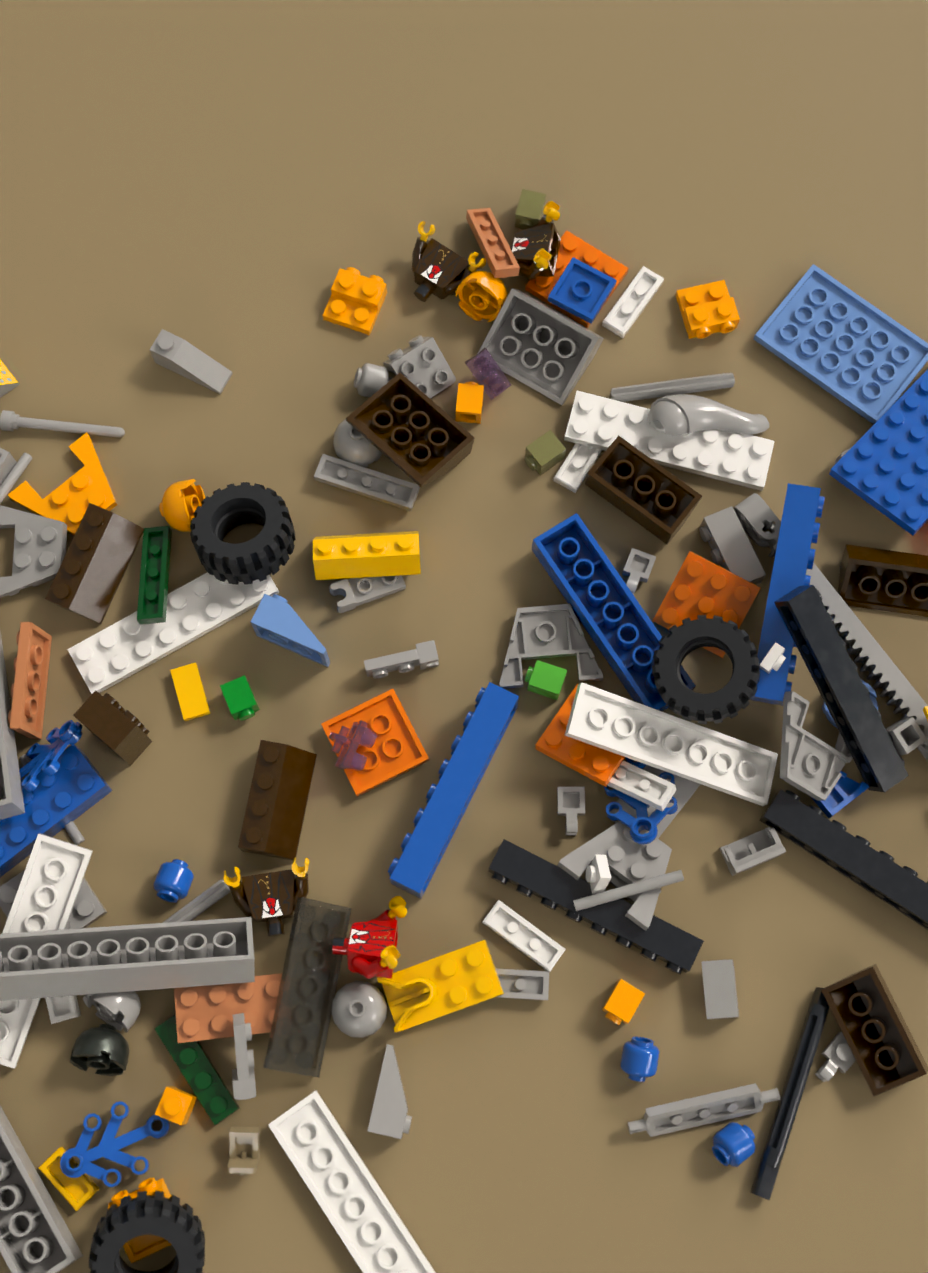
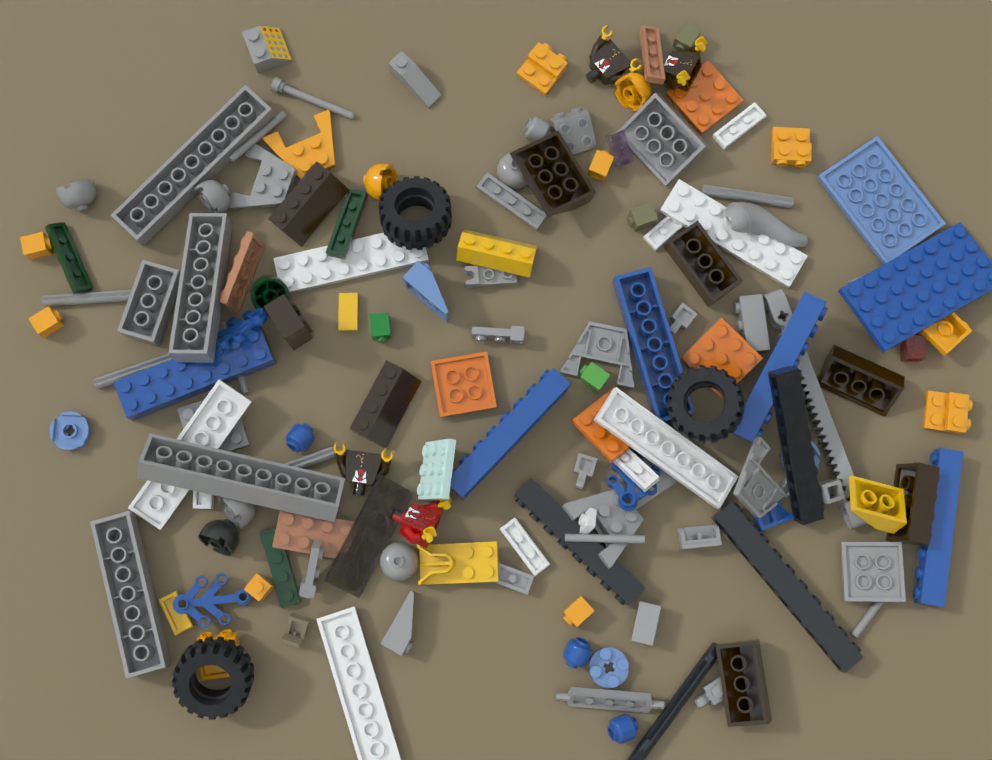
camera: 15 degrees right, 5 degrees up
(69, 694) = (266, 290): none -> dark green cylinder
(358, 735) = (453, 376): hips -> none
(373, 867) = (436, 470): none -> light aqua plate
(582, 290) = (705, 107): blue plate -> none
(702, 1058) = (620, 666): none -> medium blue plate
(773, 659) = (754, 411): white plate -> none

